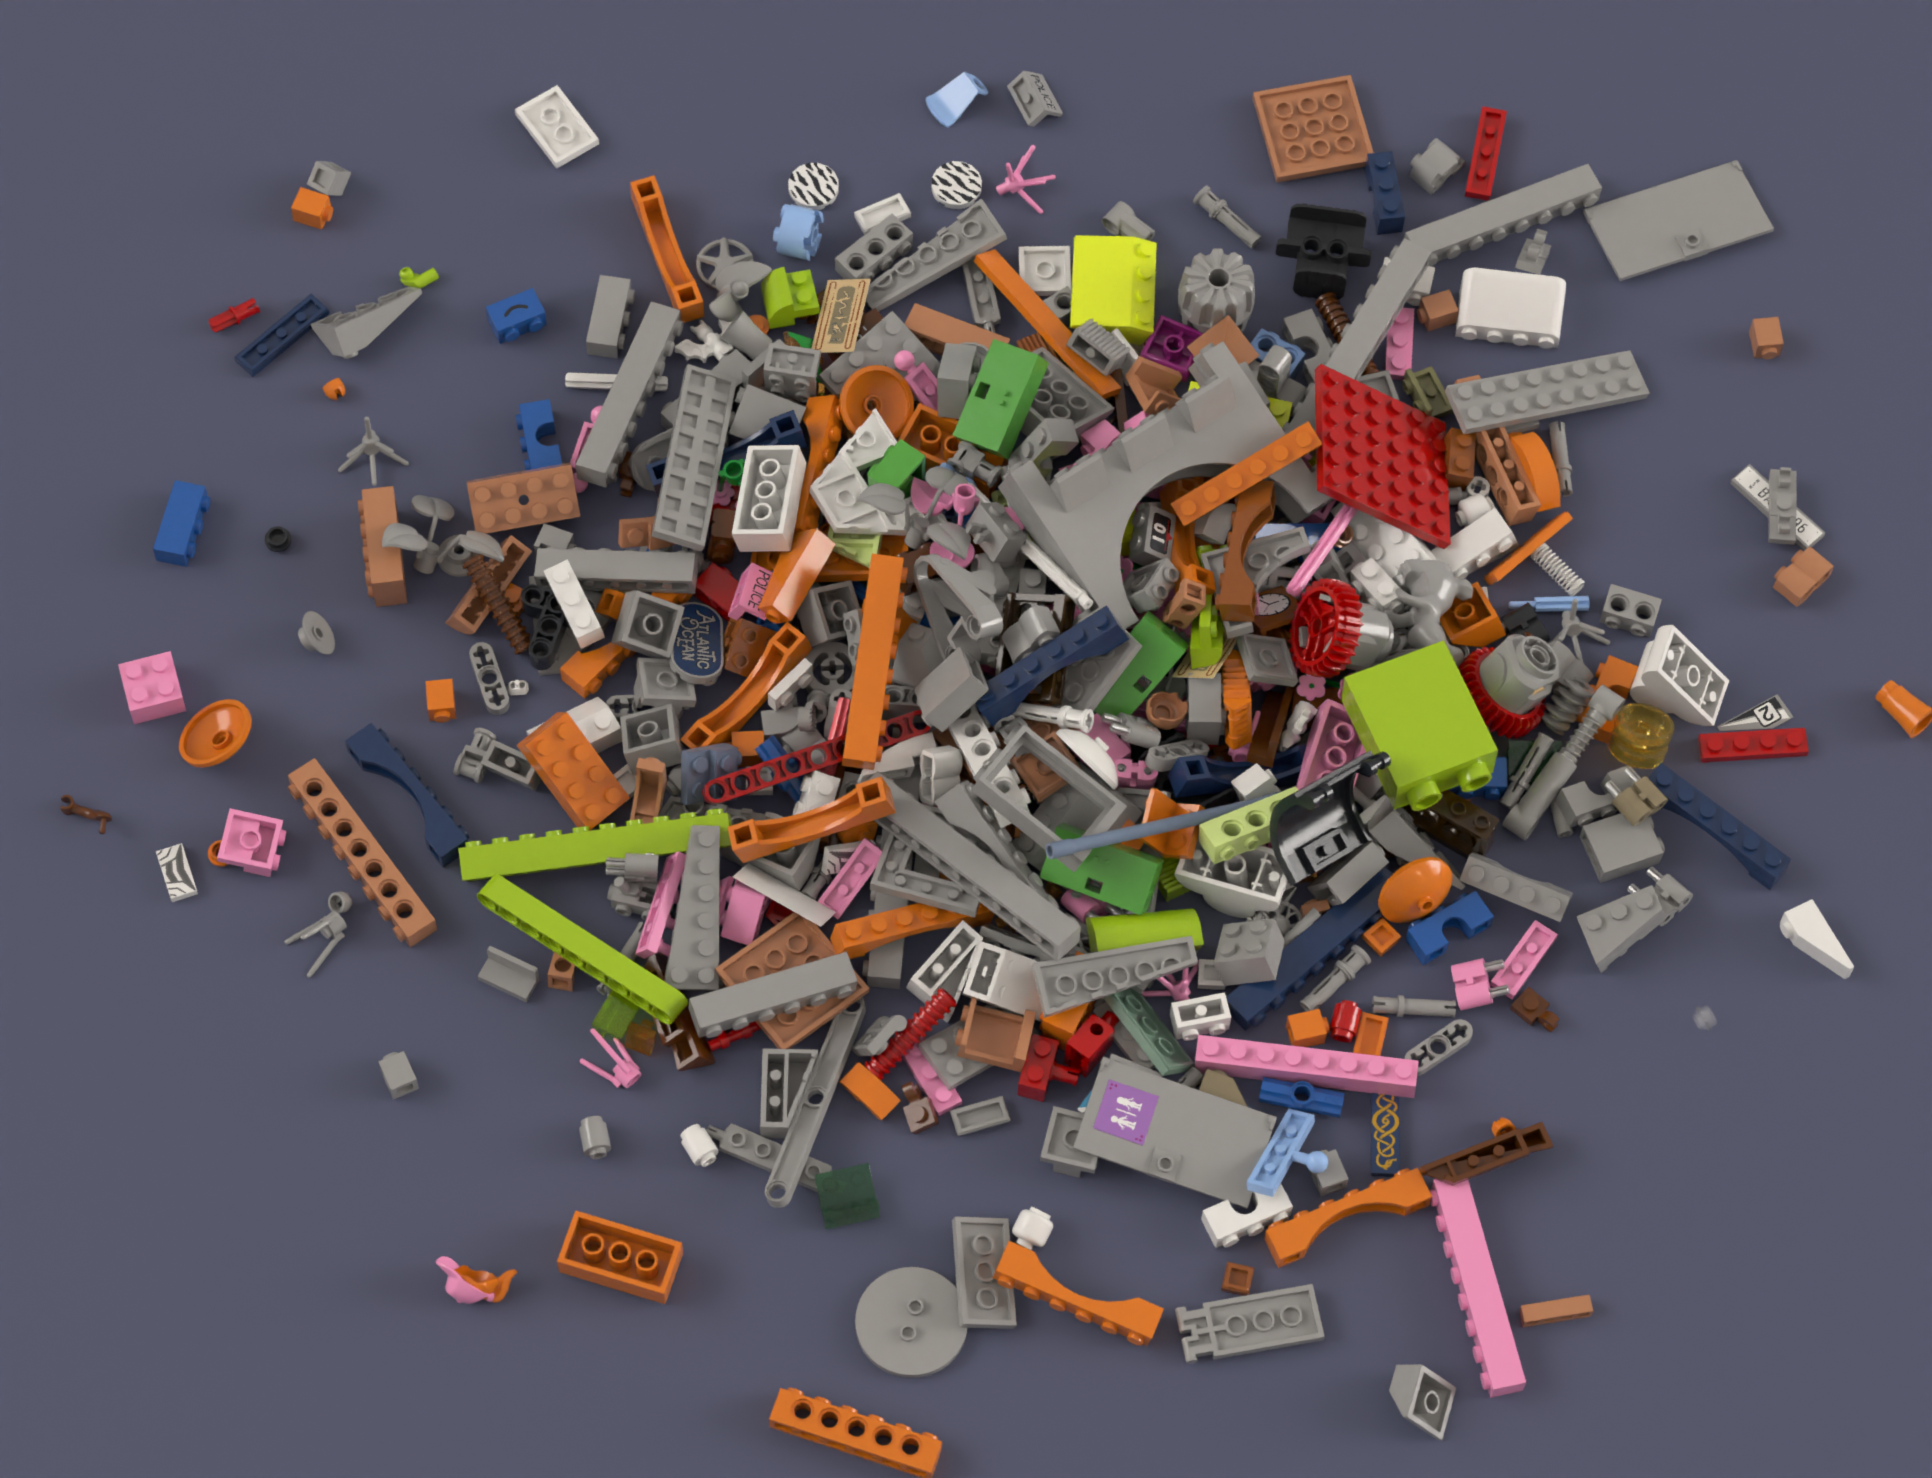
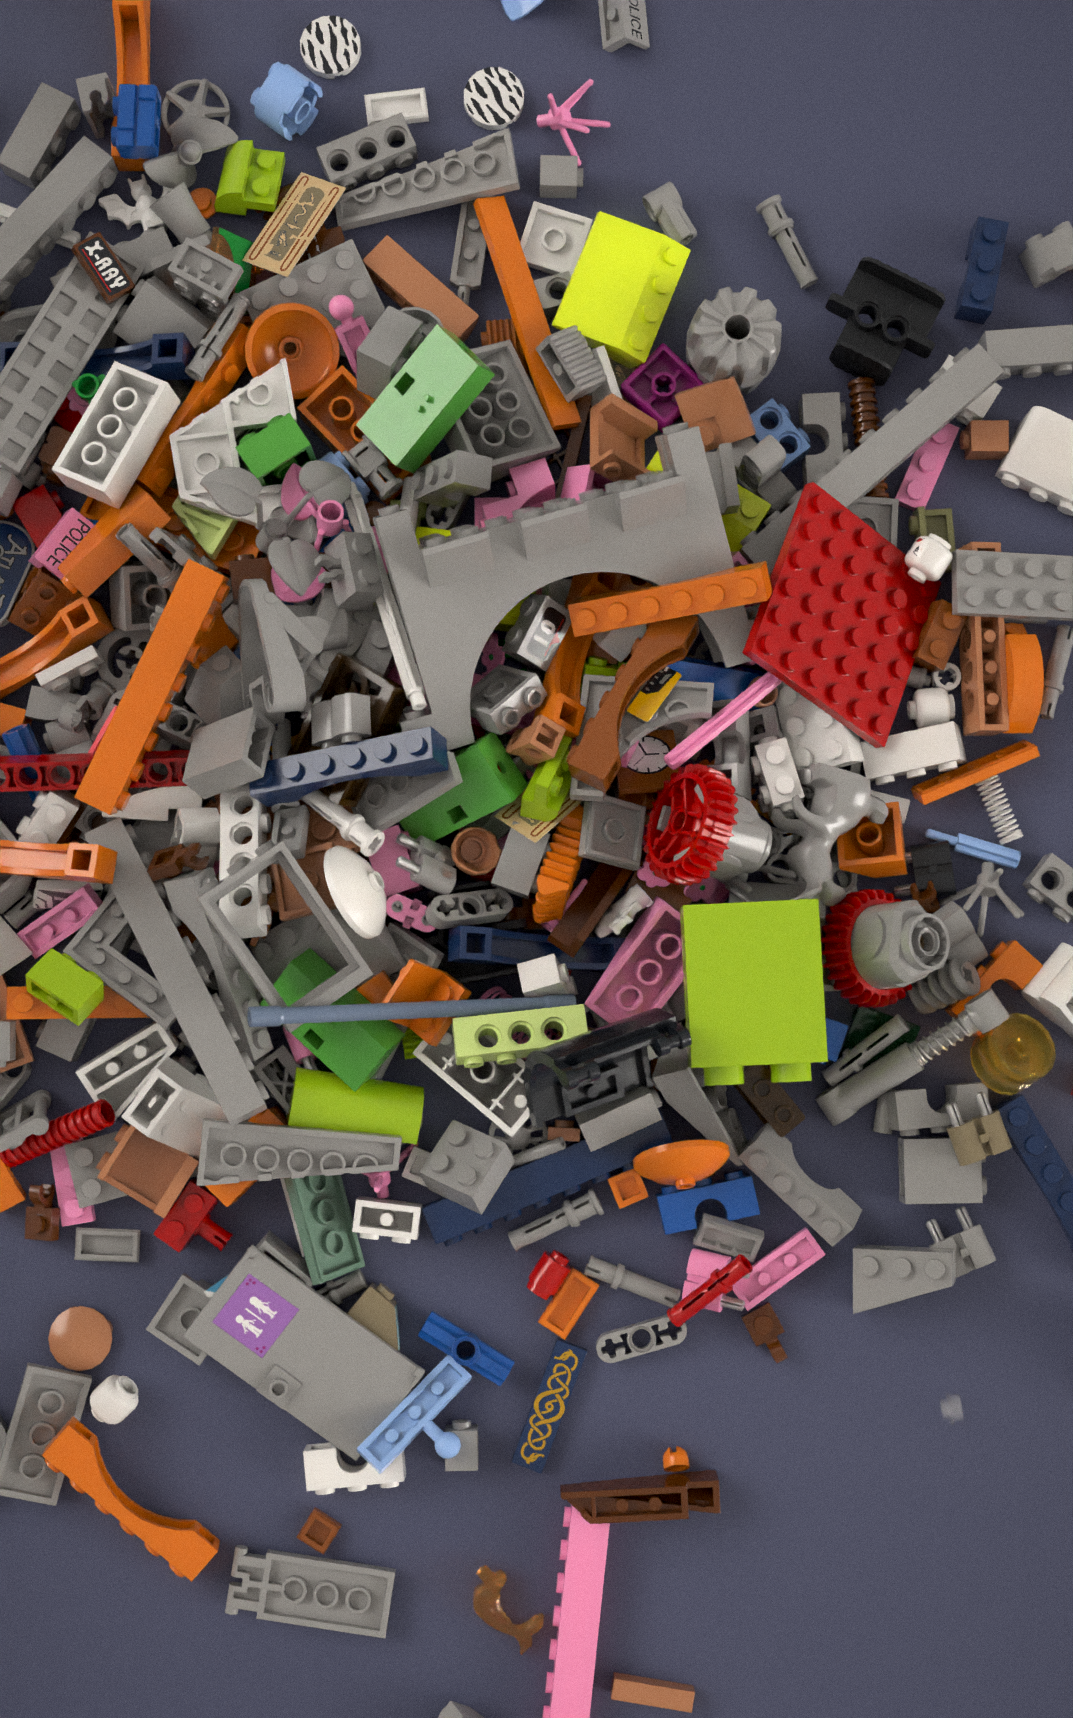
camera: 20 degrees right, 20 degrees up
(648, 275) = (96, 100): none -> light grey hinge
(694, 276) = (137, 121): none -> blue brick
(709, 386) = (103, 267): none -> tile
(823, 386) = (210, 347): none -> light grey pin
(846, 586) = (167, 572): none -> light grey pin
(849, 566) = (180, 547): none -> light grey wing
(884, 905) = (65, 986): none -> lime brick
(935, 785) = (171, 860): none -> reddish brown plate
(985, 1194) = (80, 1338): none -> nougat dish
(1031, 224) = (559, 176): none -> light grey brick
(1091, 1042) = (246, 1216): red torso -> none
(1260, 547) = (653, 694): none -> yellow sticker
(1307, 1028) = (503, 1270): orange brick -> none
(1312, 1065) = (483, 1319): bright pink brick -> none
(1313, 128) = (930, 160): nougat plate -> none
(1396, 1287) = (488, 1608): none -> clear orange animal
(1398, 1195) = (531, 1500): orange arch -> none
(1428, 399) = (928, 558): none -> white head
(1475, 946) = (728, 1237): none -> light grey plate
(1477, 981) = (720, 1282): none -> red pin

